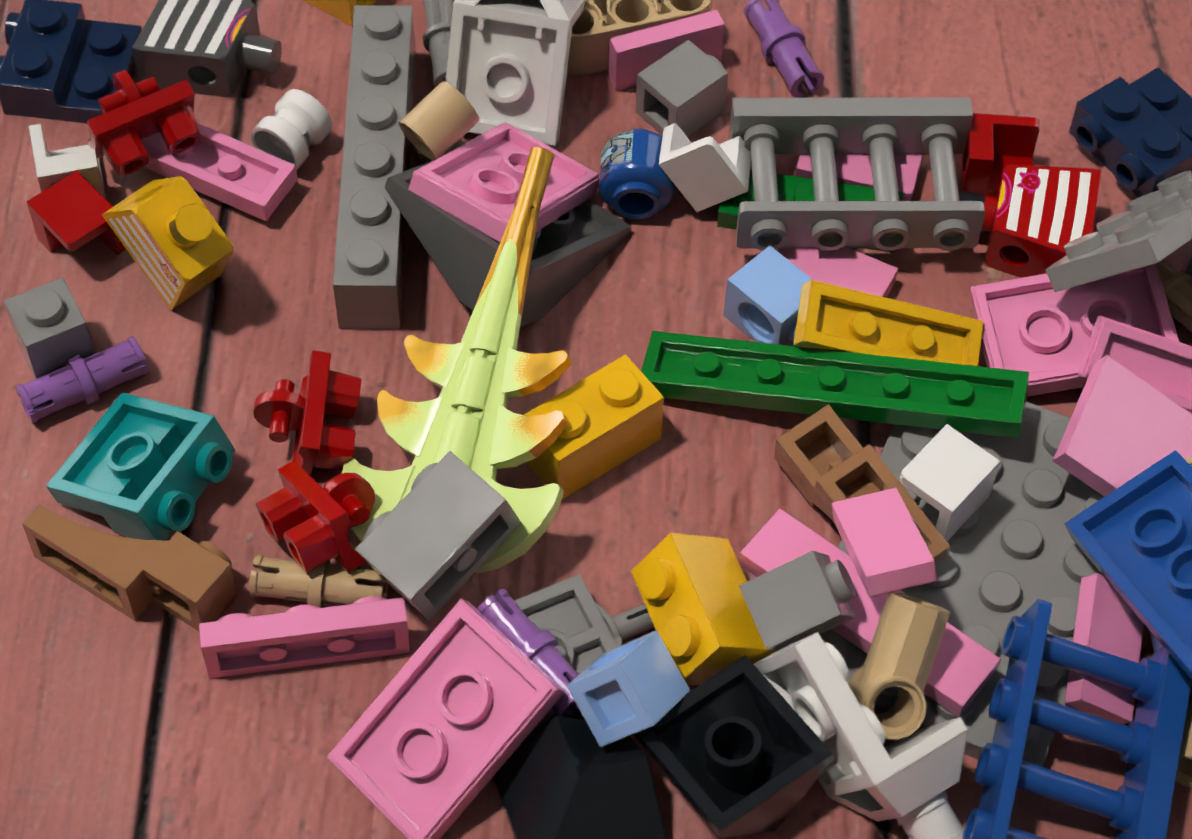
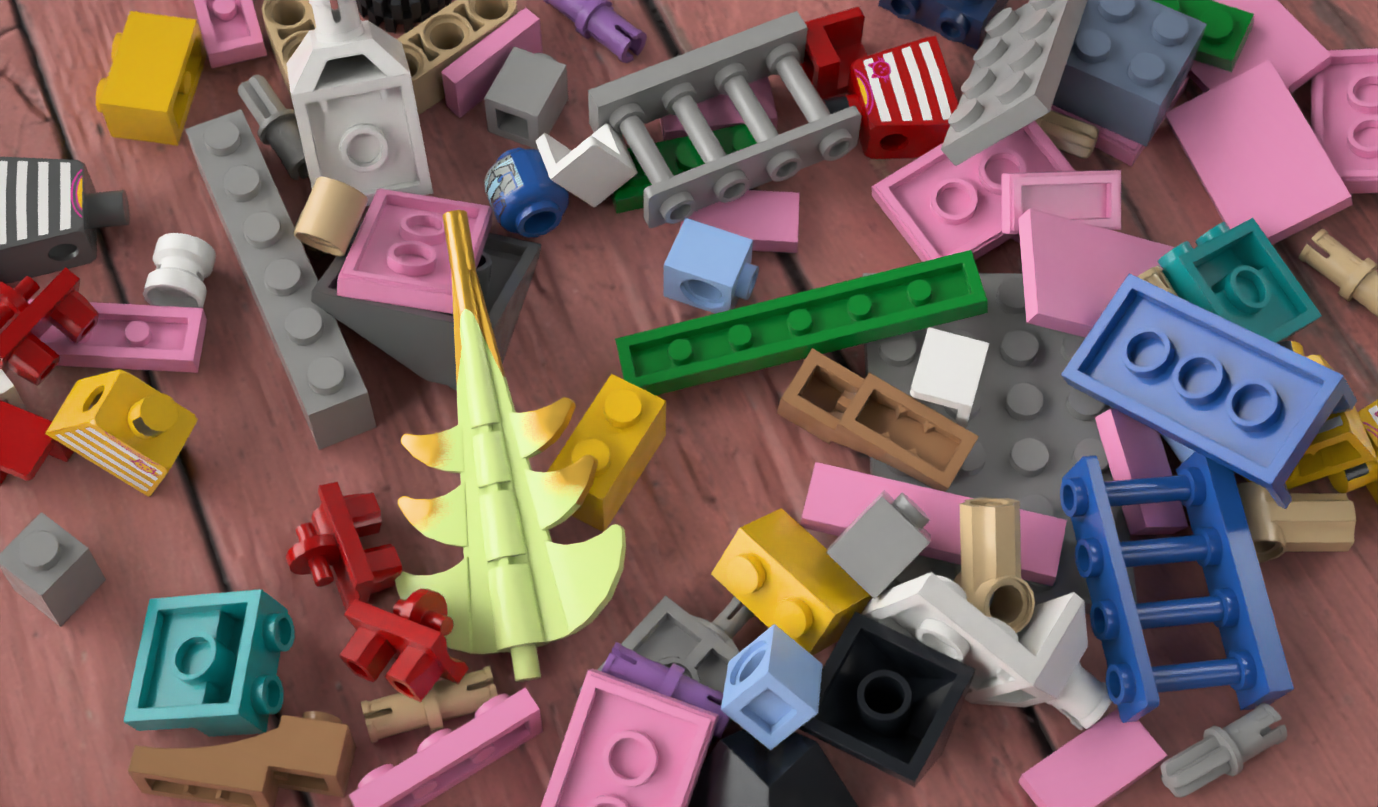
camera: 25 degrees left, 5 degrees up
(82, 379) = (102, 601): medium lavender pin -> none
(438, 534) = (531, 616): light grey brick -> none
(877, 325) = (821, 256): yellow plate -> none
(883, 542) = (931, 460): bright pink tile -> none

